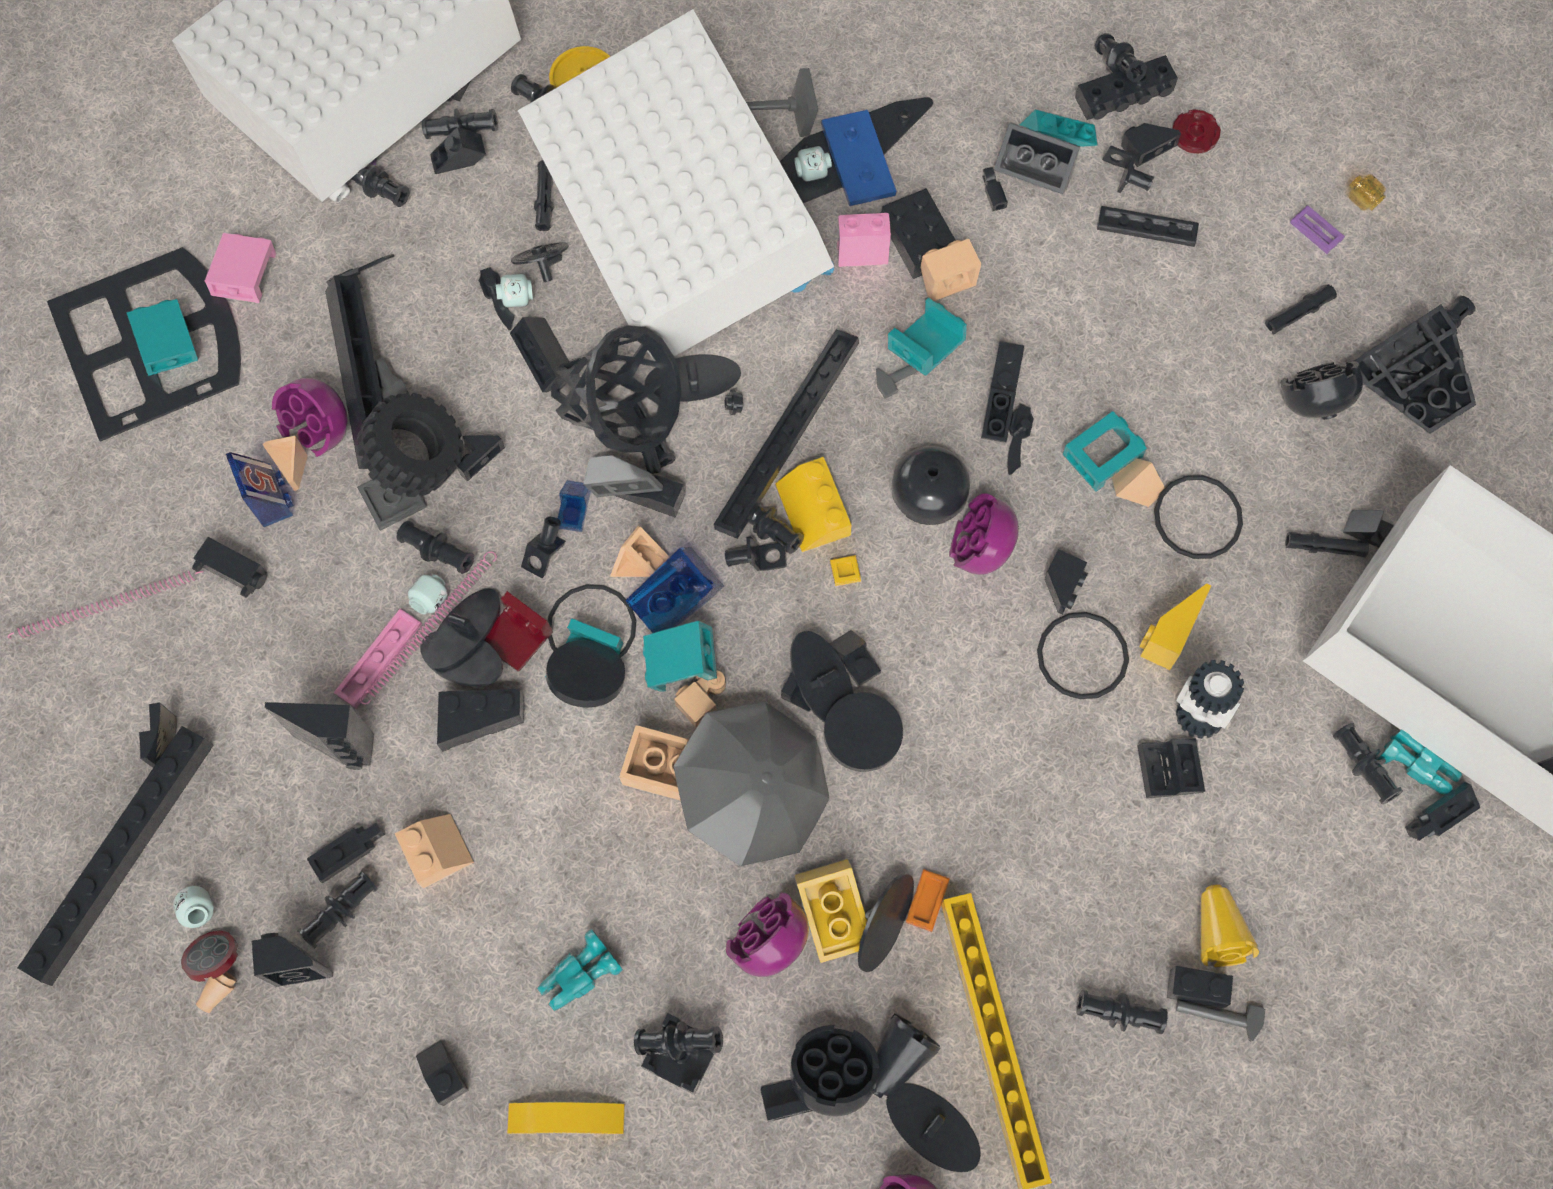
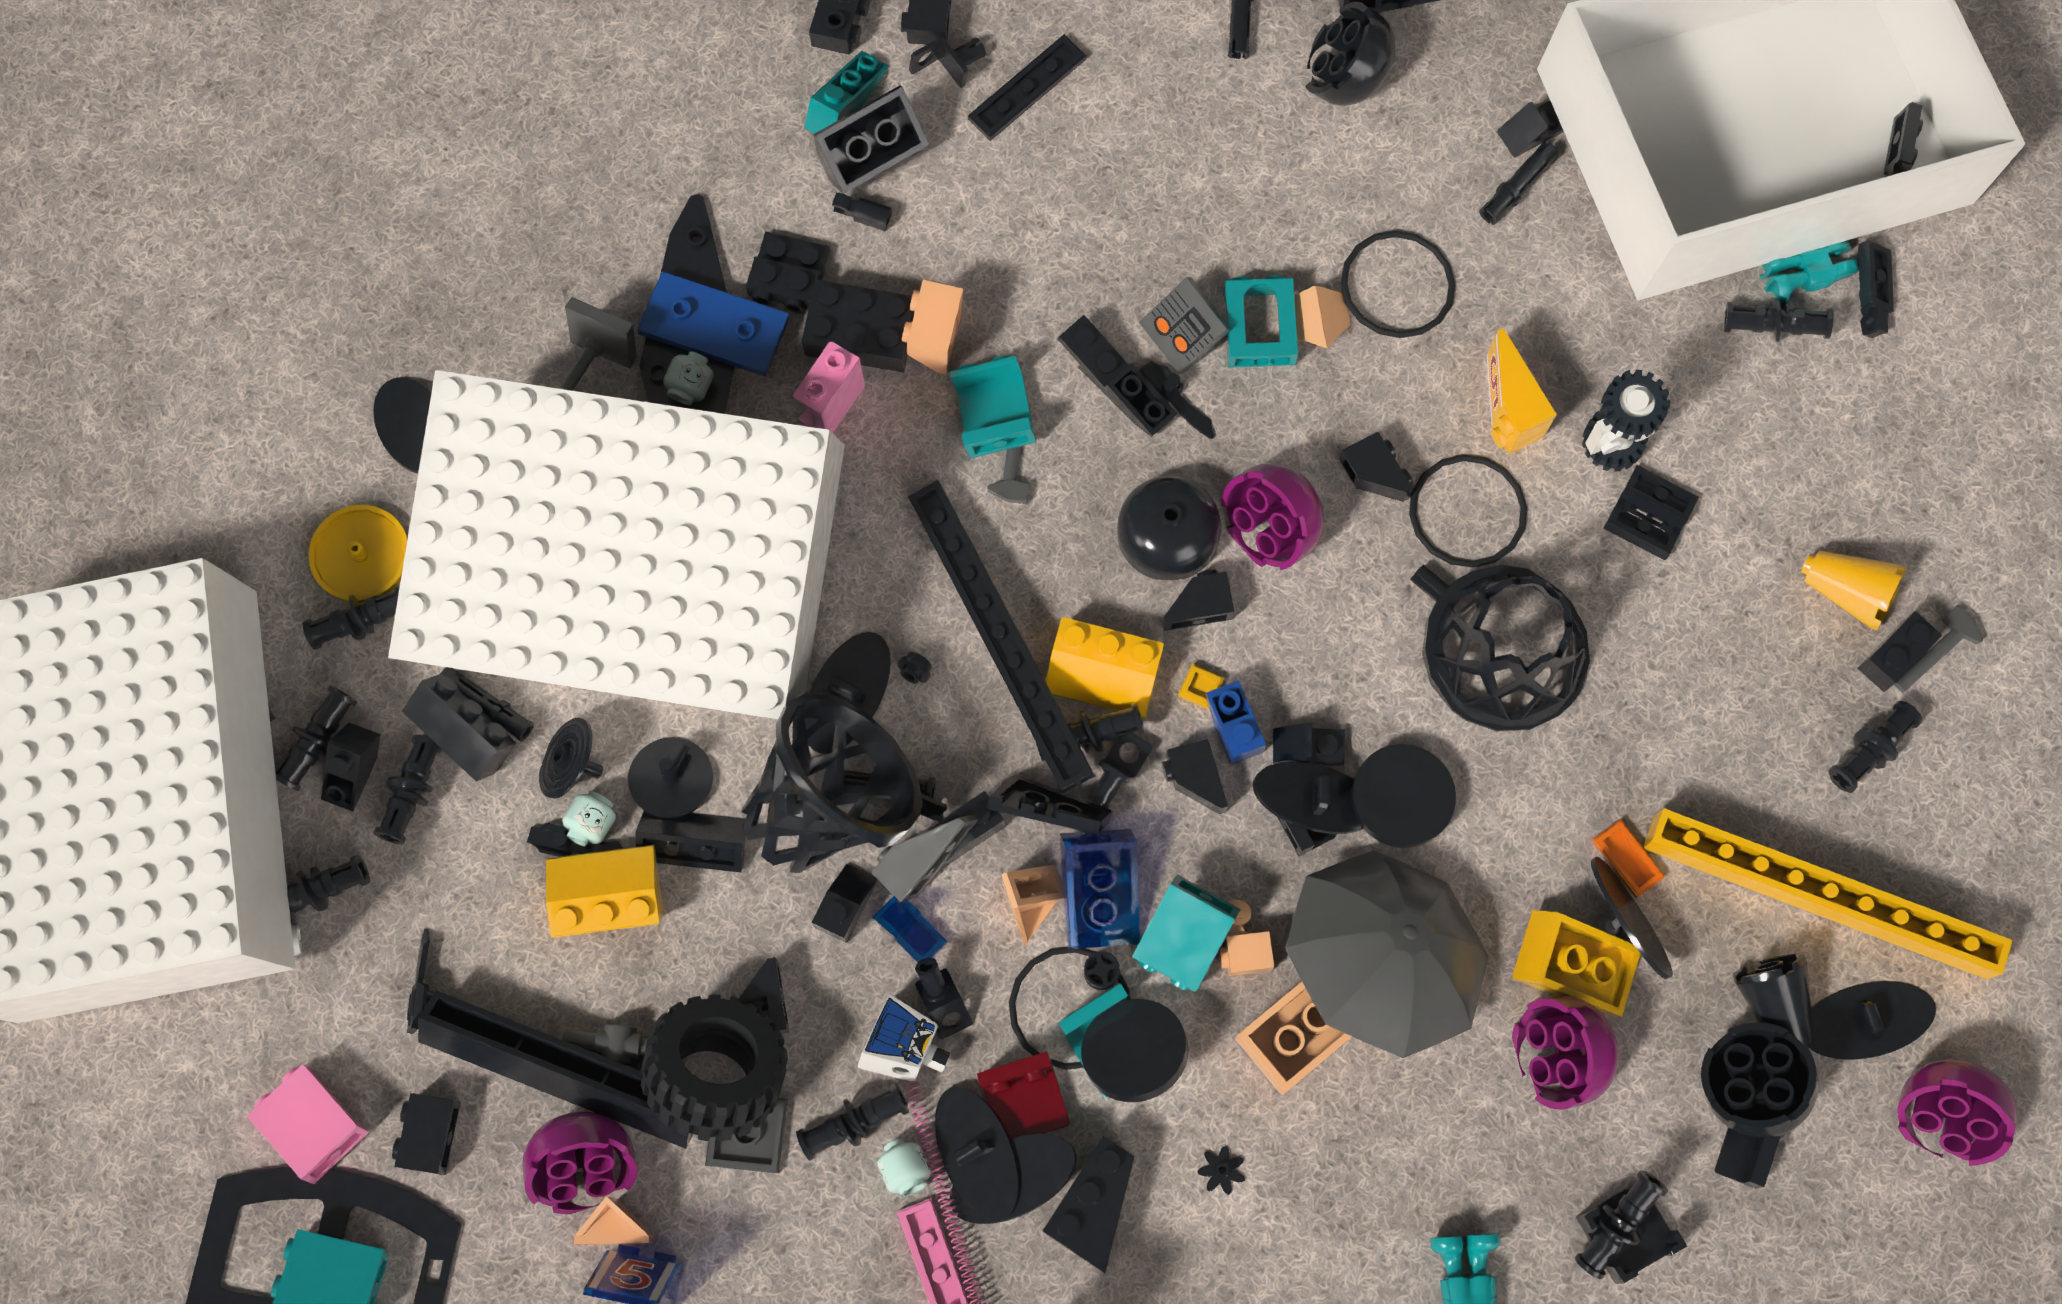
camera: 55 degrees left, 5 degrees up
(276, 331) = (426, 1134): none -> black brick
(464, 189) = (407, 790): none -> black piece
(476, 325) = (603, 891): none -> yellow slope
(499, 541) = (902, 1043): none -> torso
(518, 189) = (459, 726): none -> black brick
(555, 782) = (1213, 1170): none -> black plant
(562, 457) = (844, 903): none -> black slope
(571, 318) = (670, 777): none -> black shield
(620, 621) = (1100, 964): none -> black wheel
(699, 519) = (1045, 804): none -> black wing
(786, 600) = (1196, 774): none -> black slope
(834, 601) = (1235, 723): none -> blue slope
(897, 533) = (1201, 602): none -> black slope
(922, 172) = (786, 271): none -> black plate
(964, 703) = (1444, 618): none -> black piece
(1066, 408) = (1185, 325): none -> dark grey tile

